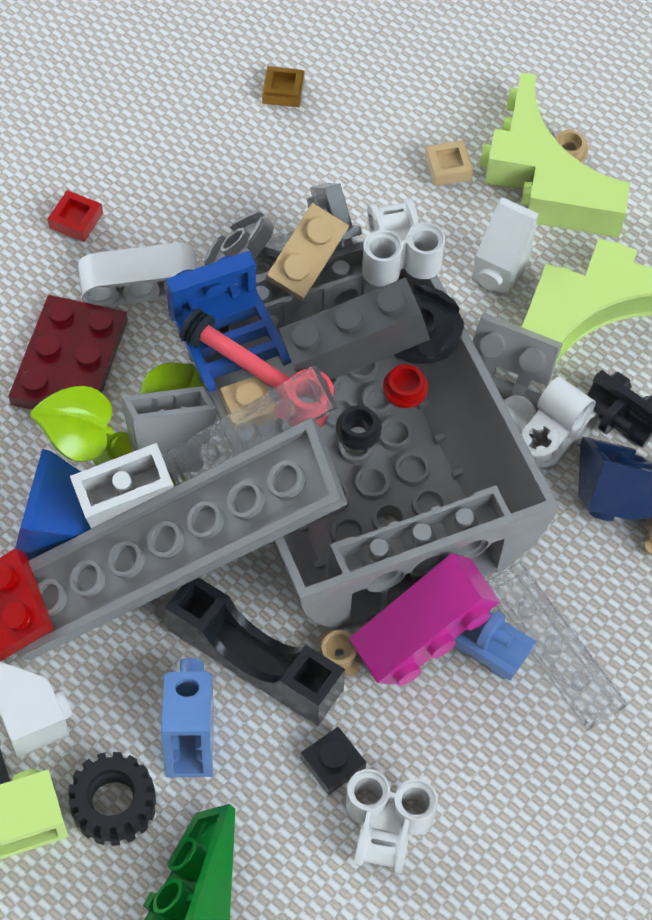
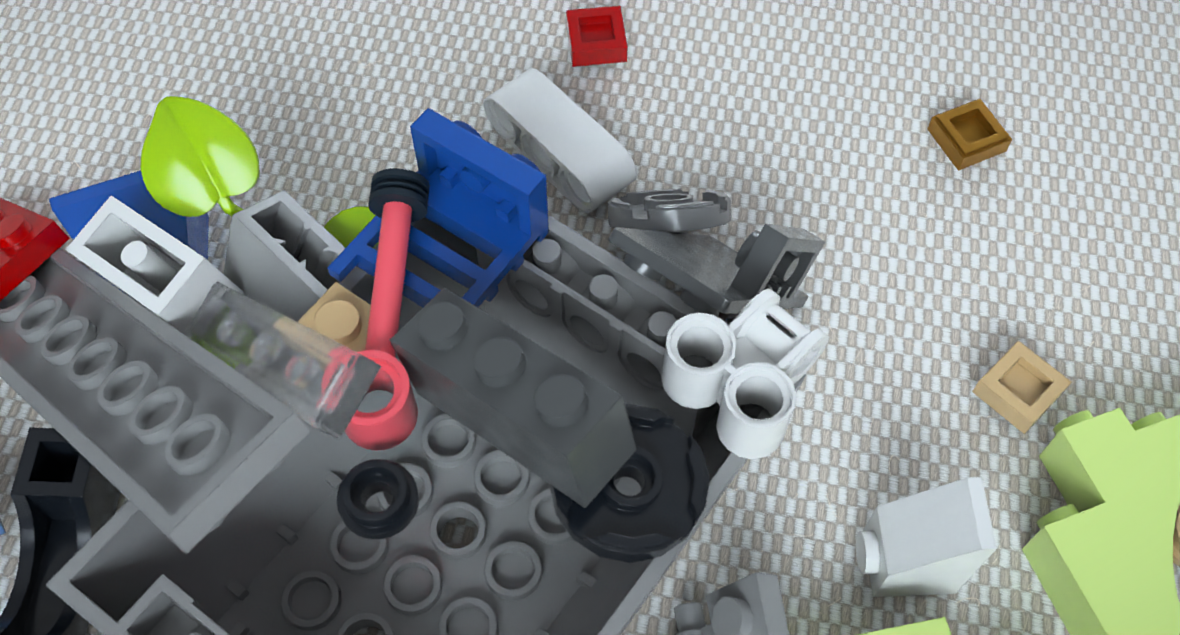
camera: 60 degrees right, 0 degrees up
(68, 349) = (374, 133): dark red plate -> none
(307, 252) = (632, 259): tan plate -> none
(405, 386) = (494, 524): red plate -> none

